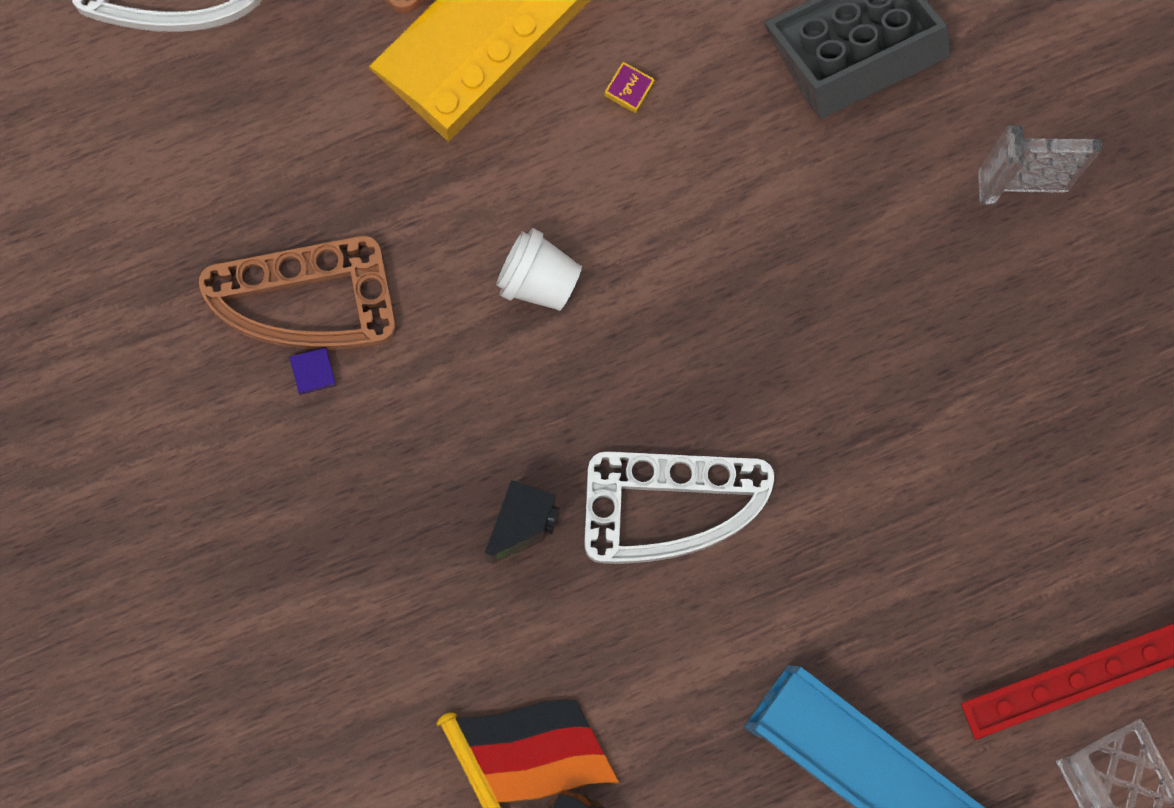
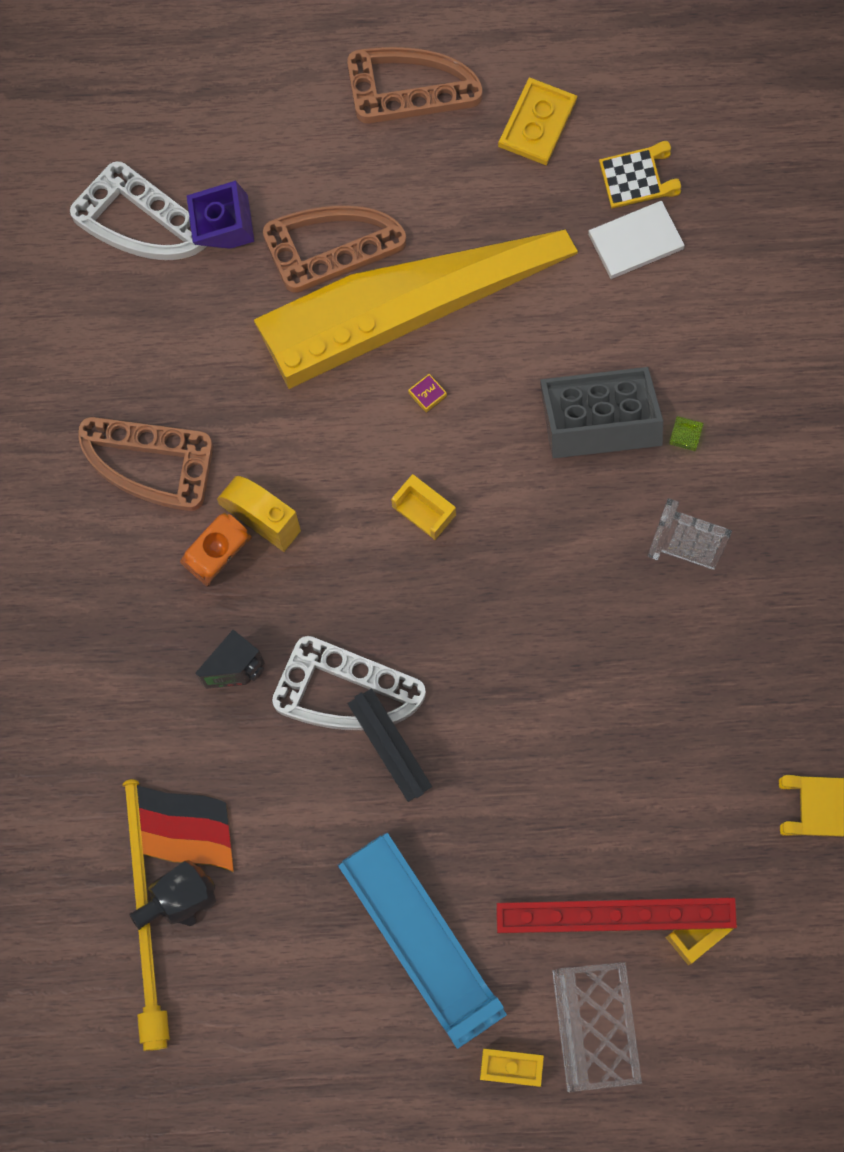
camera: 30 degrees right, 5 degrees down
(312, 371) = (133, 512): dark purple tile -> none
(441, 382) = (215, 548): none -> orange piece
(478, 313) = (260, 511): none -> yellow brick
(538, 272) = (312, 496): white piece -> none
(682, 236) = (423, 507): none -> yellow panel
(757, 555) = (389, 745): none -> black fence
(971, 30) = (686, 433): none -> clear neon green tile

